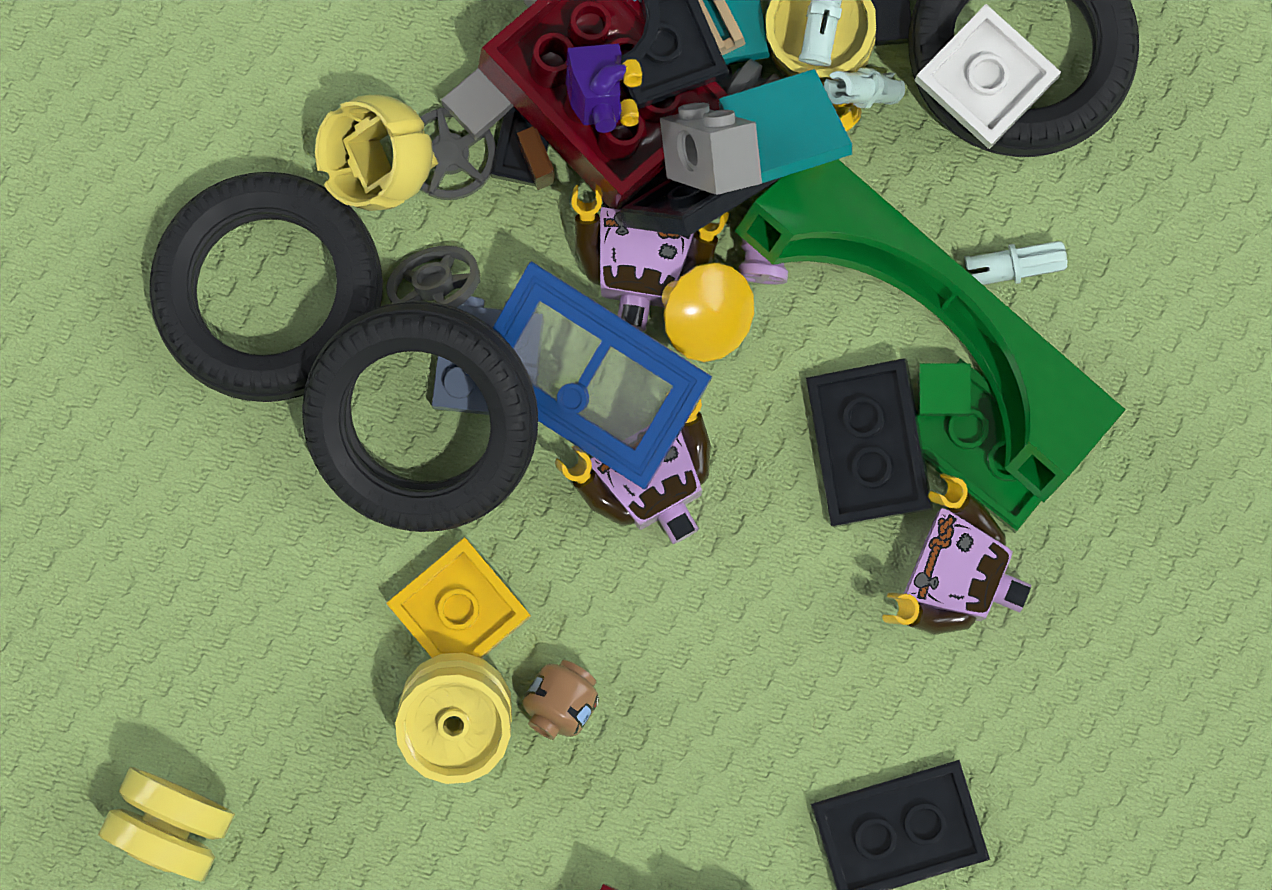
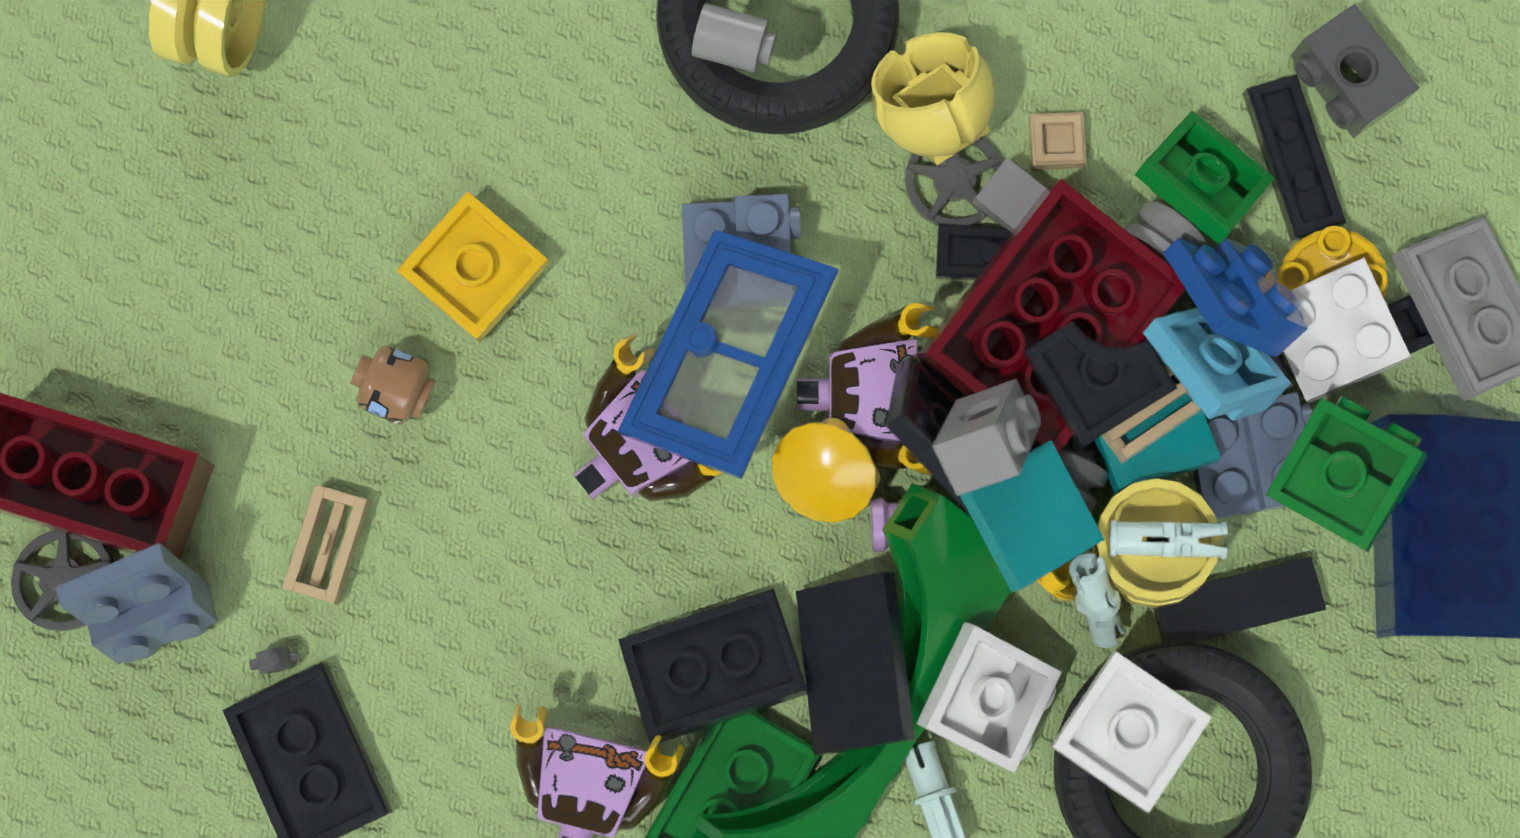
camera: 80 degrees right, 0 degrees up
(293, 323) = (733, 38): none -> light grey brick
(367, 484) = (733, 217): black tyre -> none
(429, 54) = (1057, 141): none -> tan tile
(435, 279) = (810, 182): dark grey wheel -> none
(450, 747) = (353, 276): light yellow wheel -> none
(536, 157) = (959, 264): reddish brown tile -> none
(594, 86) = (1041, 300): dark purple piece -> none
(739, 805) = (306, 539): none -> tan tile
(802, 850) = (273, 660): none -> dark grey piece
(888, 311) = (855, 664): none -> black tile
(937, 197) = (989, 698): none -> white plate
(944, 389) = (781, 738): green tile -> none

